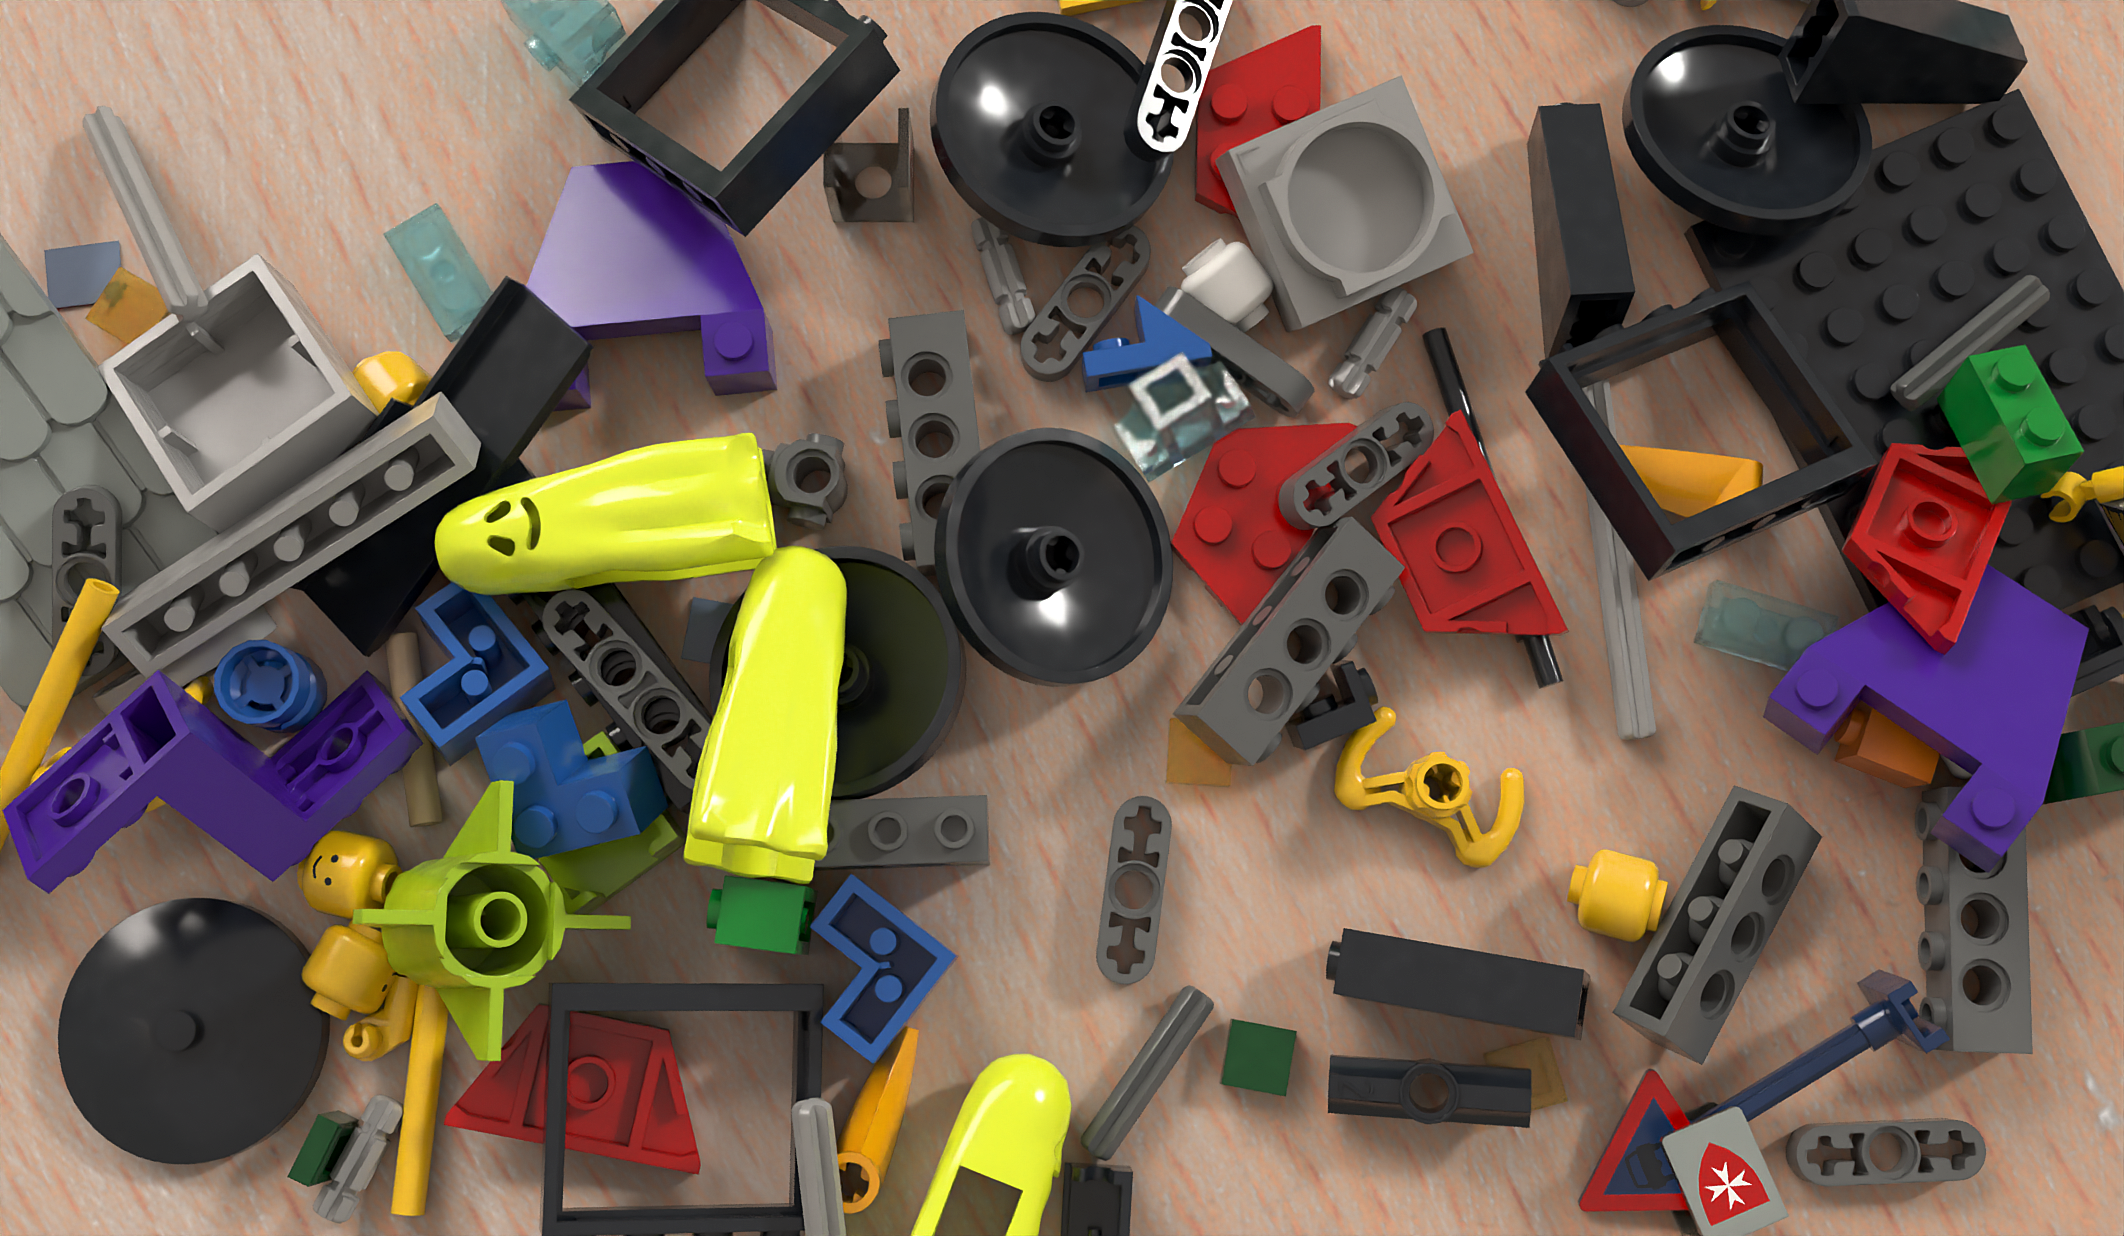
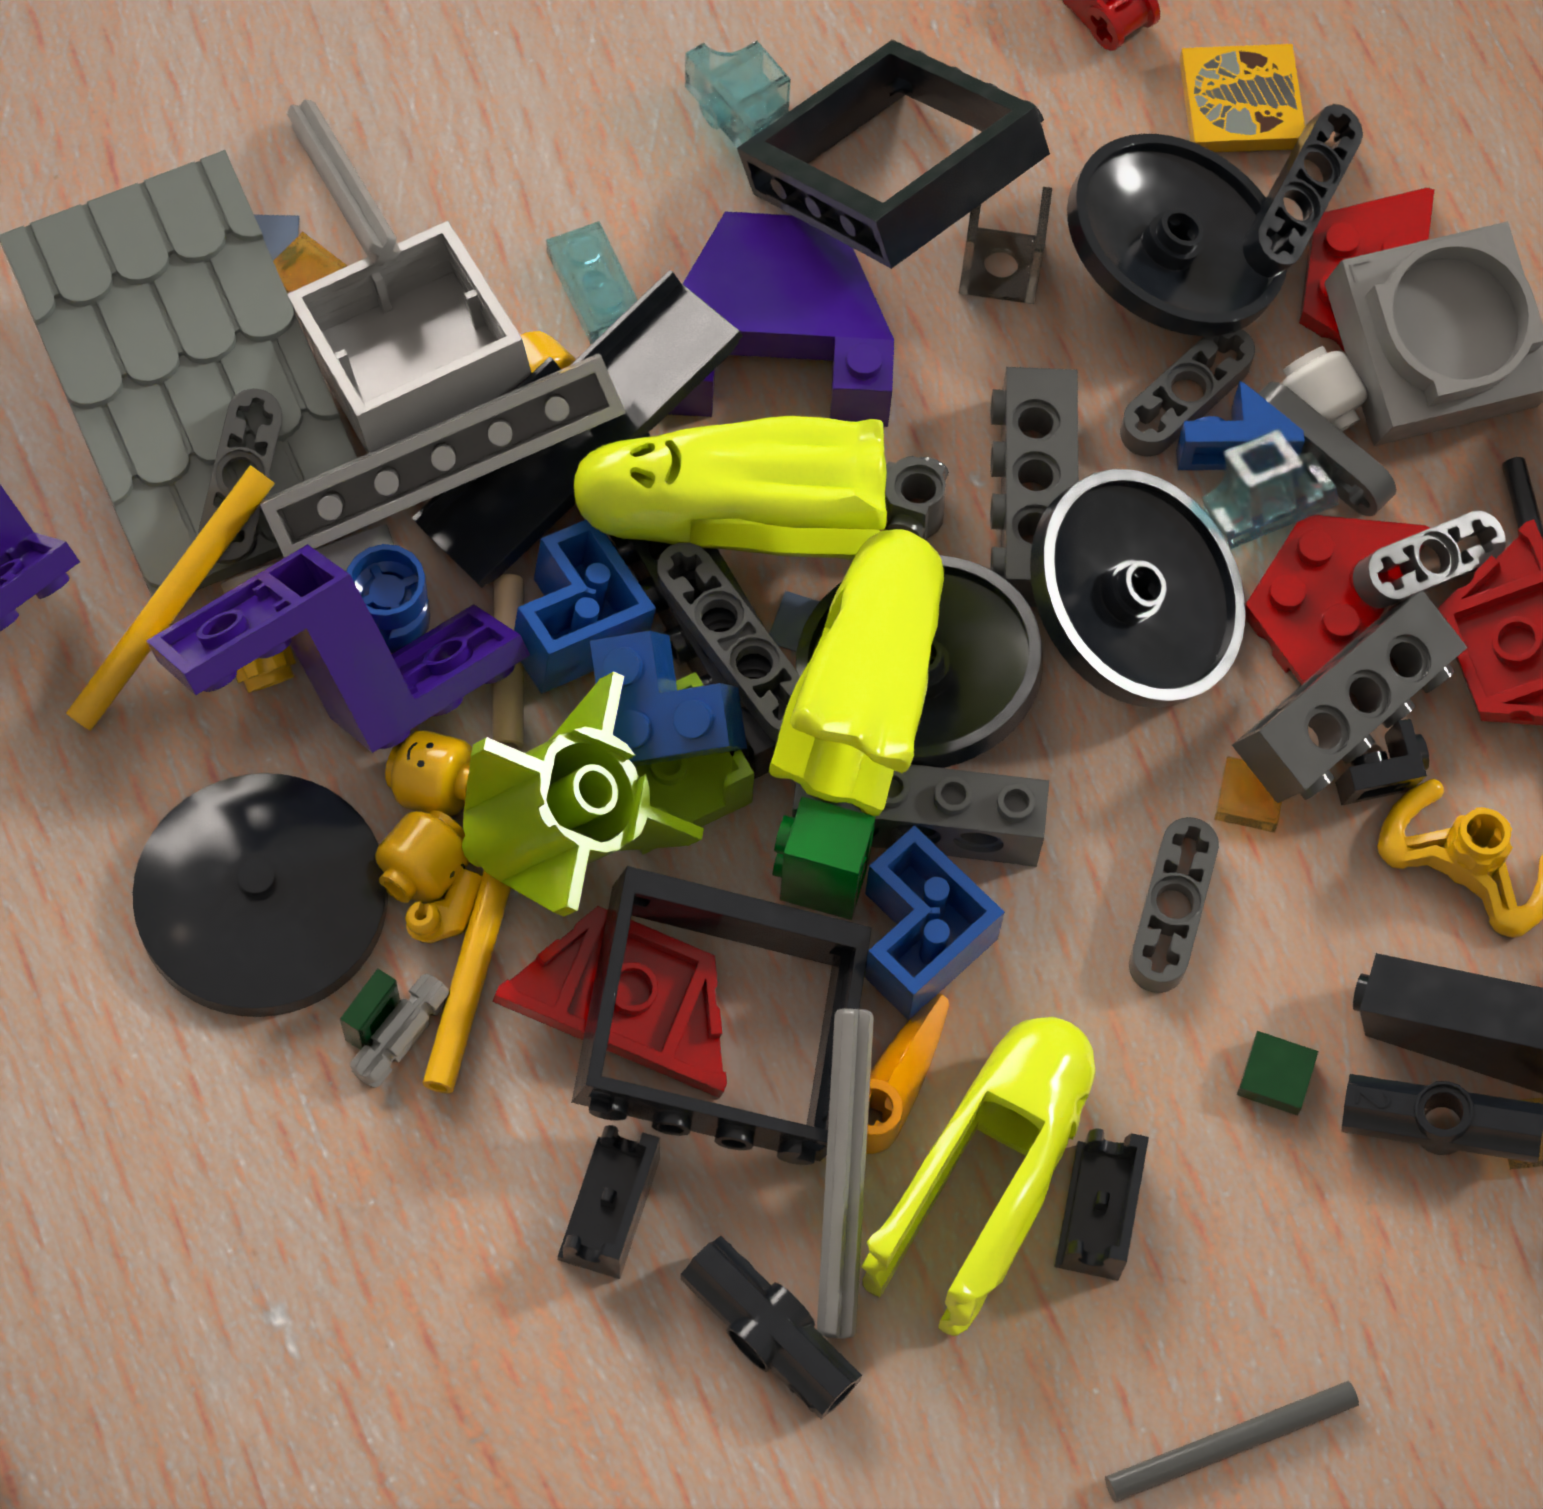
camera: 10 degrees right, 15 degrees down
(1003, 276) = (1113, 354): light grey axle -> none
(1147, 1073) = (1168, 1069): dark grey axle -> none
(1372, 343) = (1454, 462): light grey axle -> none

